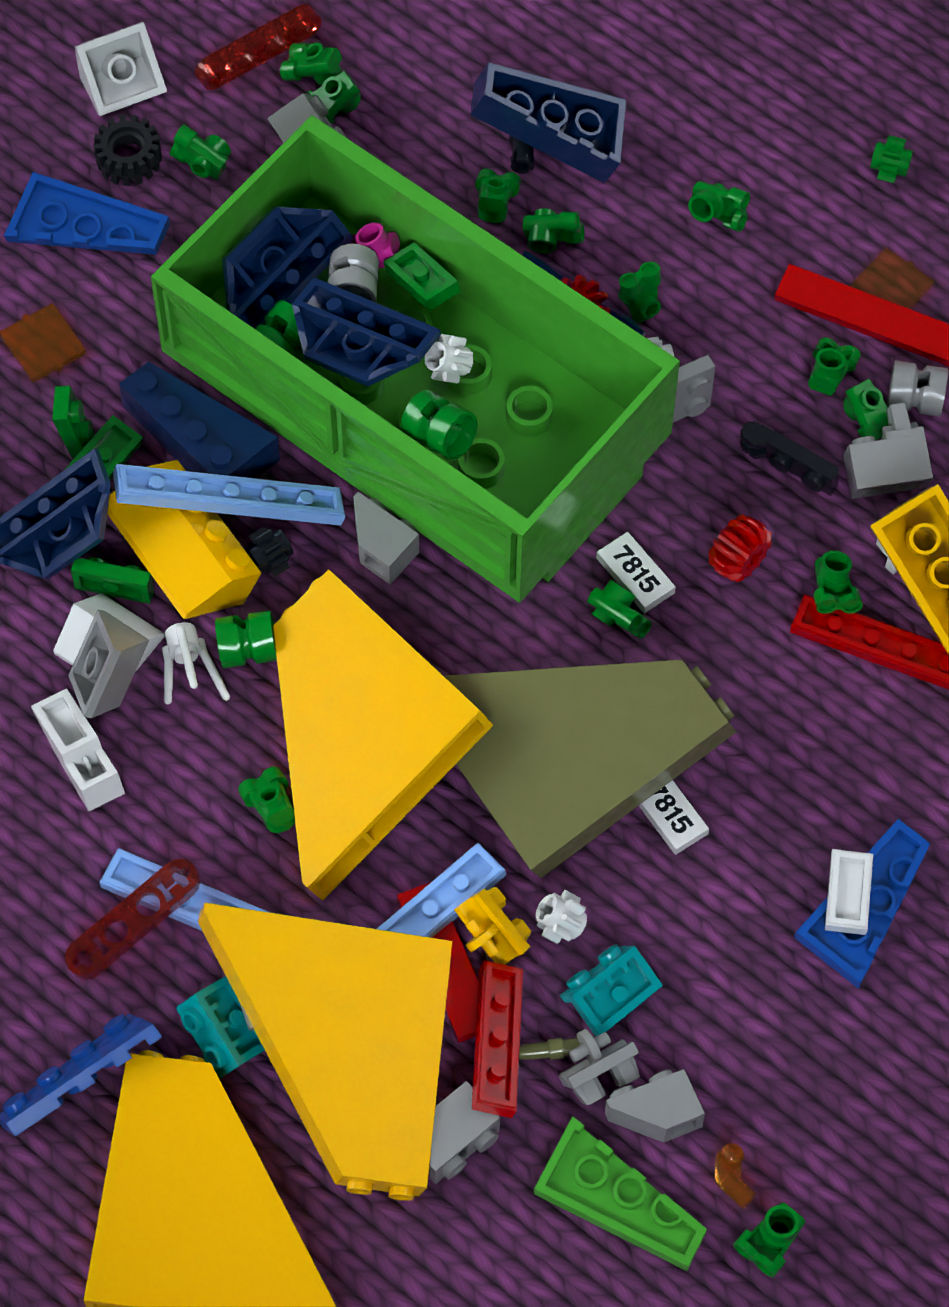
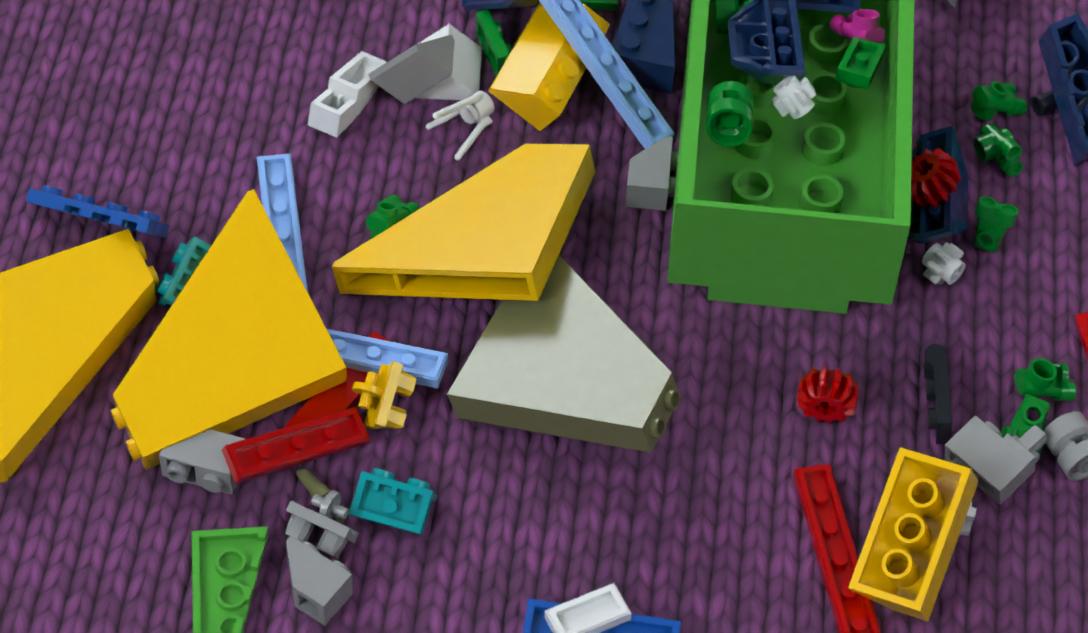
camera: 55 degrees right, 10 degrees down
(128, 913) = (241, 181): clear red beam -> none
(246, 639) = (501, 133): green wheel -> none
(270, 551) = (586, 116): black gear -> none
(355, 270) = (825, 25): light grey wheel -> none
(561, 916) = (427, 437): white gear -> none
(614, 606) = (711, 347): green plate -> none
(636, 572) = (757, 347): white tile -> none
(674, 818) = (572, 470): white tile -> none
(694, 388) = (932, 288): light grey bracket -> none
(834, 585) = (852, 476): green plate -> none

